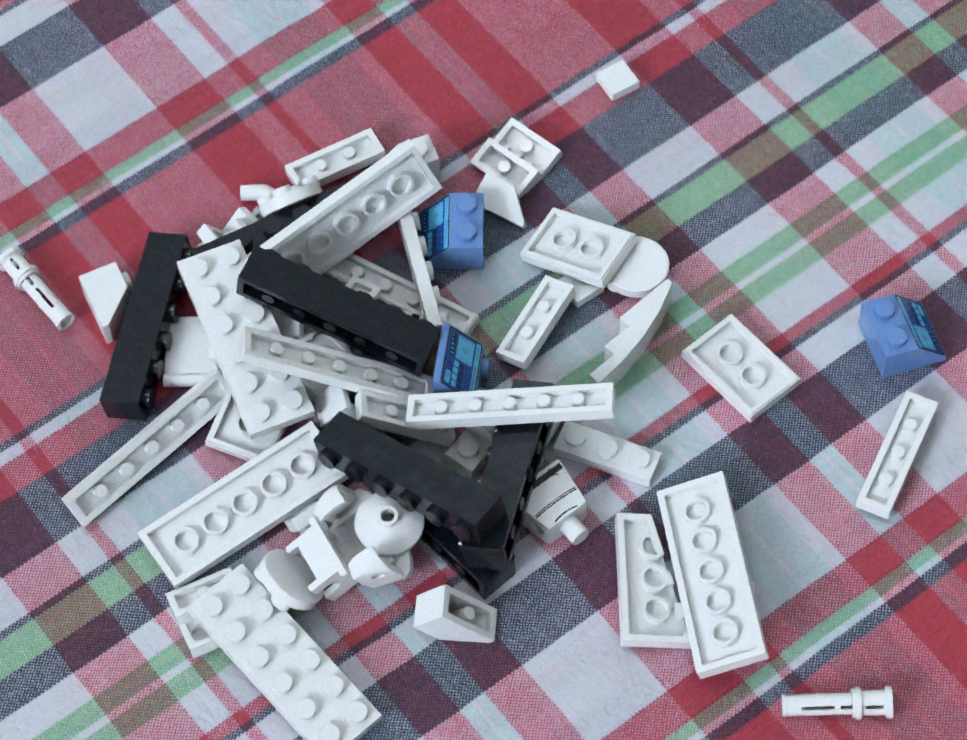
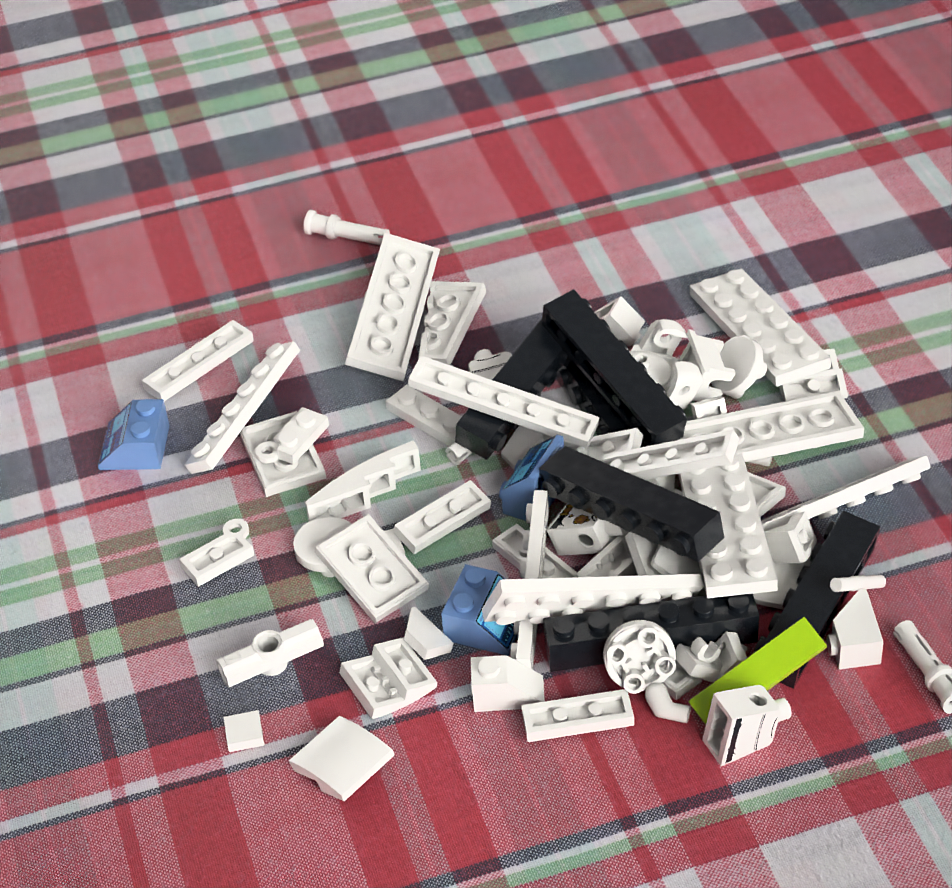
camera: 160 degrees left, 15 degrees down
(111, 333) = (858, 582): none -> white piece
(176, 350) = (792, 541): none -> white slope
(183, 216) = (767, 665): none -> lime tile
(186, 177) = (742, 722): none -> white torso
(521, 75) = (341, 758): none -> white slope
(619, 154) = (269, 652): none -> white piece
(730, 372) = (294, 437): none -> white hinge
(733, 229) = (219, 554): none -> white hinge
(810, 407) = (243, 406): none -> white plate

